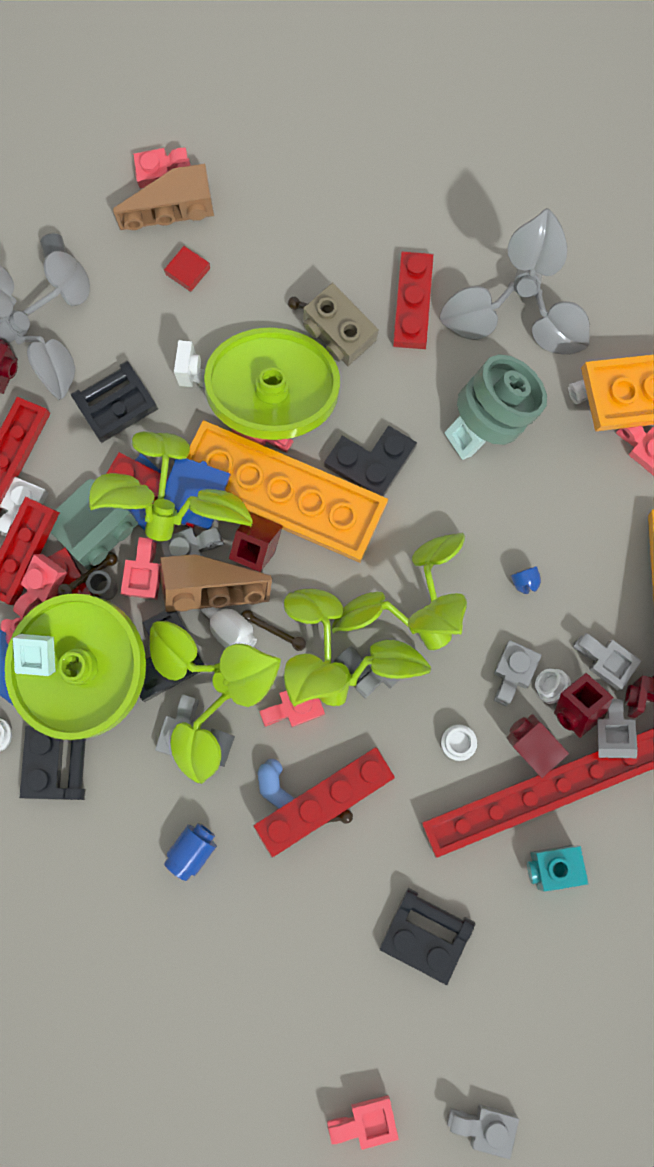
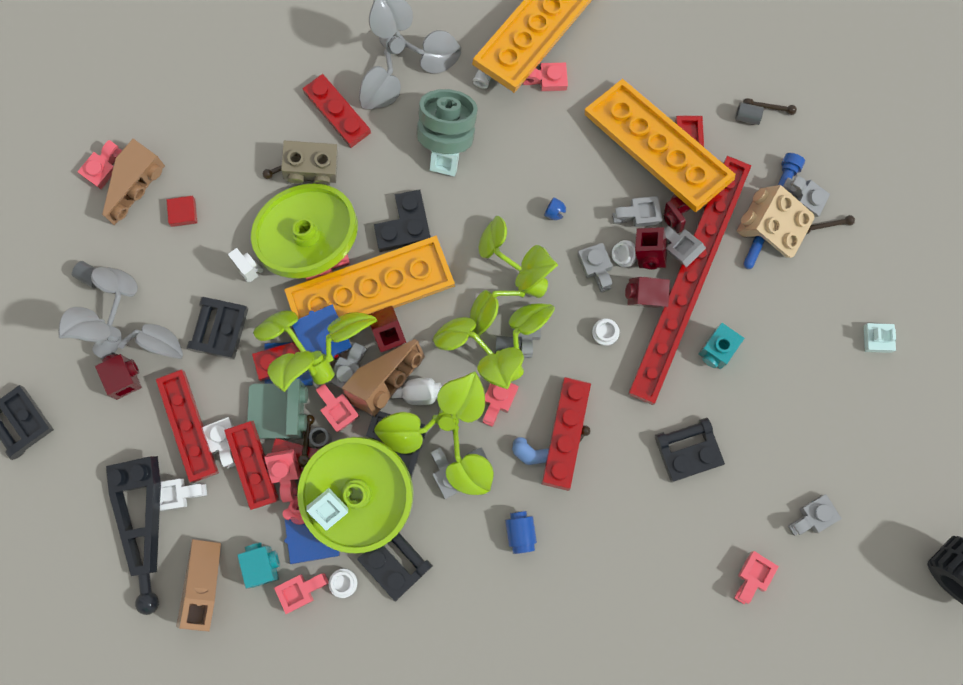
camera: 50 degrees left, 0 degrees up
(297, 643) = (465, 363): dark brown hinge -> none

